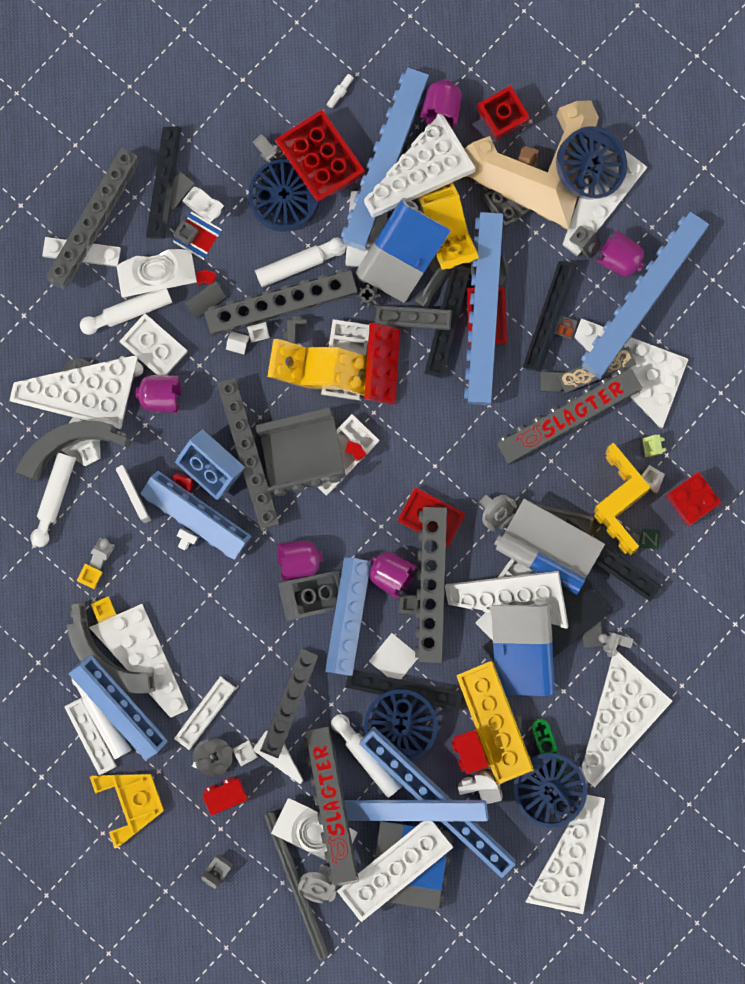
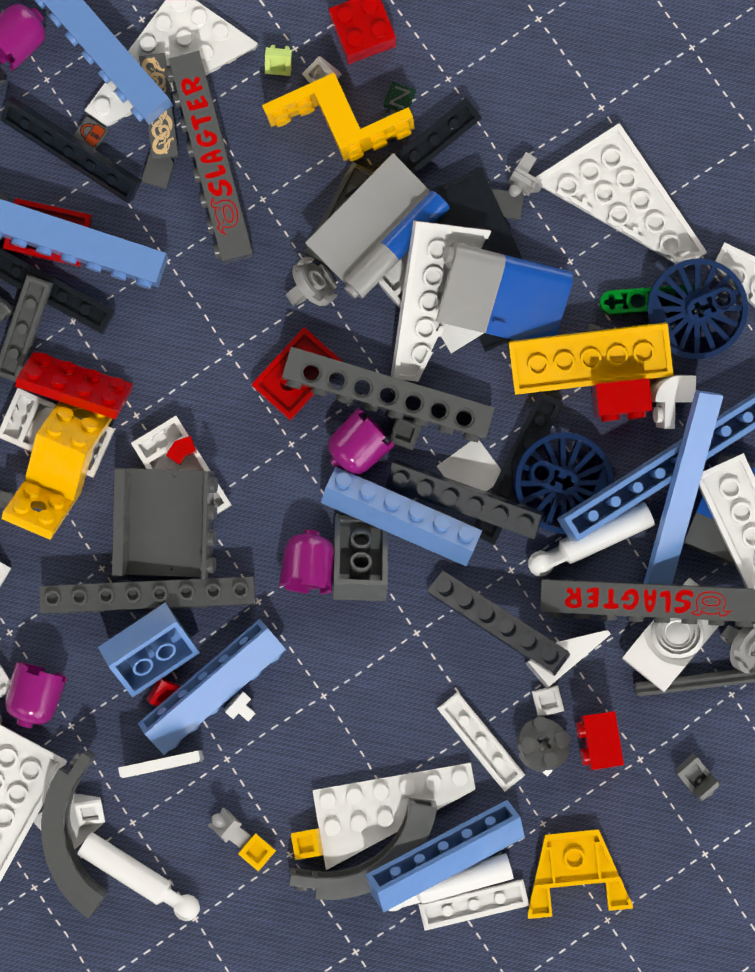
camera: 75 degrees left, 0 degrees up
(371, 658) = (464, 499): none -> black plate

